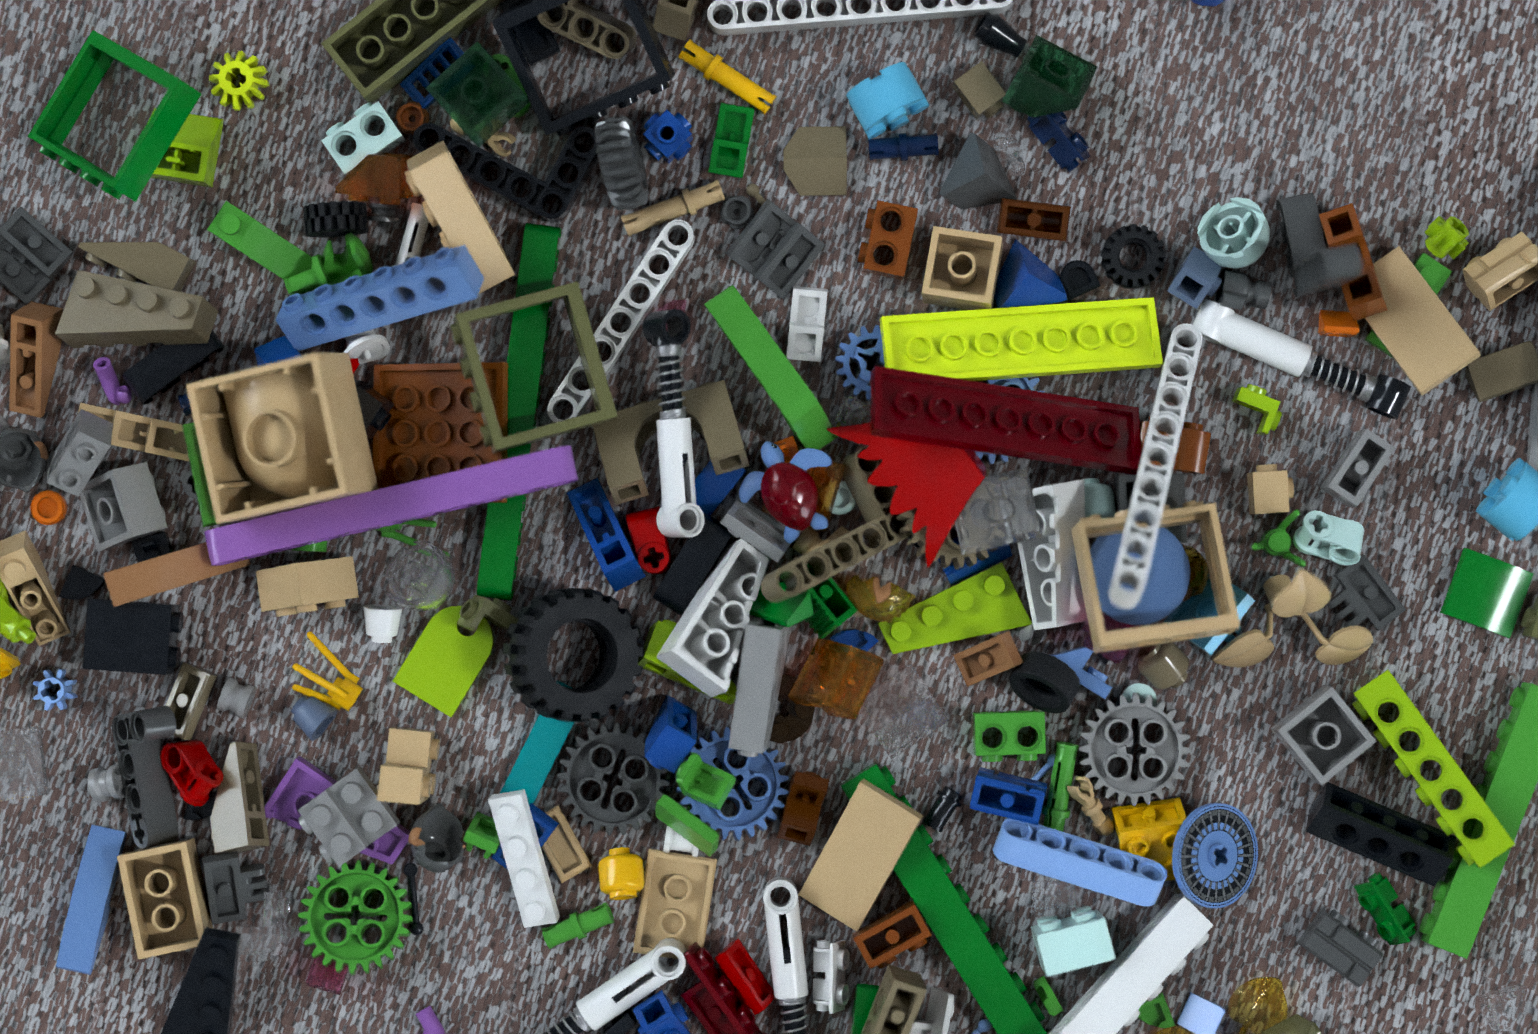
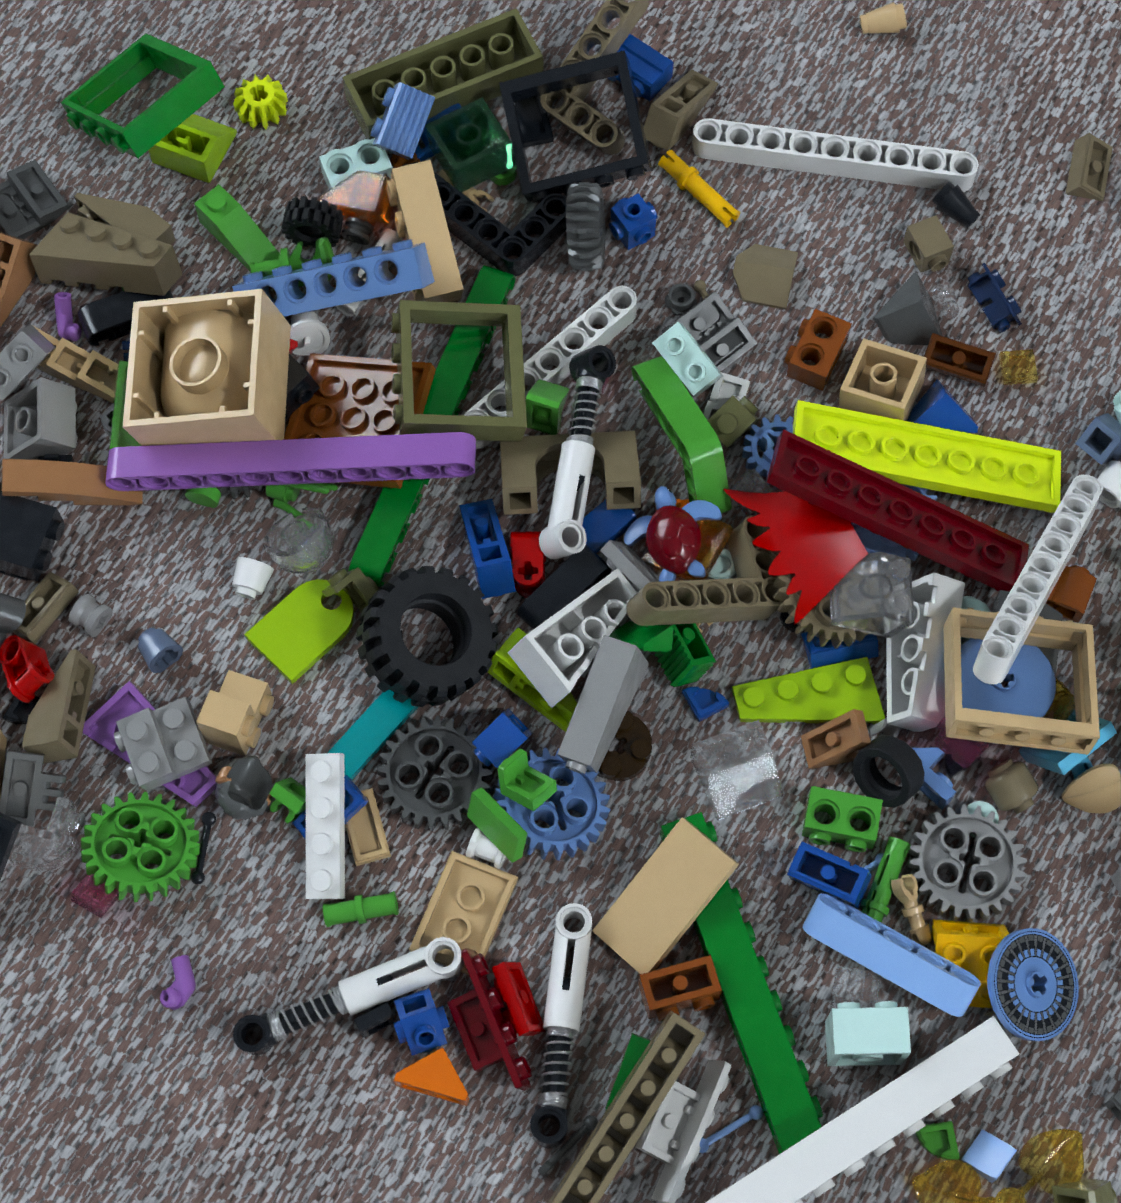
camera: 10 degrees right, 20 degrees down
(304, 585) = (190, 520): tan brick -> none
(342, 692) = (194, 633): yellow plant -> none
(399, 87) = (402, 120): none -> medium blue brick
(621, 874) = (417, 867): yellow head -> none
(629, 370) = (545, 406): none -> bright green slope
(673, 208) = (637, 280): tan pin -> none
(731, 140) = (690, 240): green slope -> none
(760, 291) = (687, 359): none -> light aqua brick
(802, 807) = (617, 839): reddish brown brick -> none
(820, 341) = (733, 419): none -> olive bracket
(830, 992) = (611, 1004): white hinge -> none
(836, 678) = (680, 721): clear orange slope -> none
(878, 602) = (739, 657): clear yellow hair -> none
(887, 100) = (842, 228): medium azure brick -> none
(903, 146) = (848, 277): dark blue pin -> none
(943, 808) = (759, 879): black pin -> none
(1047, 996) = (829, 1095): bright green tile -> none
(1049, 80) = (992, 238): clear green slope -> none
(1078, 279) = (992, 422): black tile -> none
(1095, 208) = (1018, 367): none -> clear yellow tile
(1133, 235) = (1050, 395): black tyre -> none

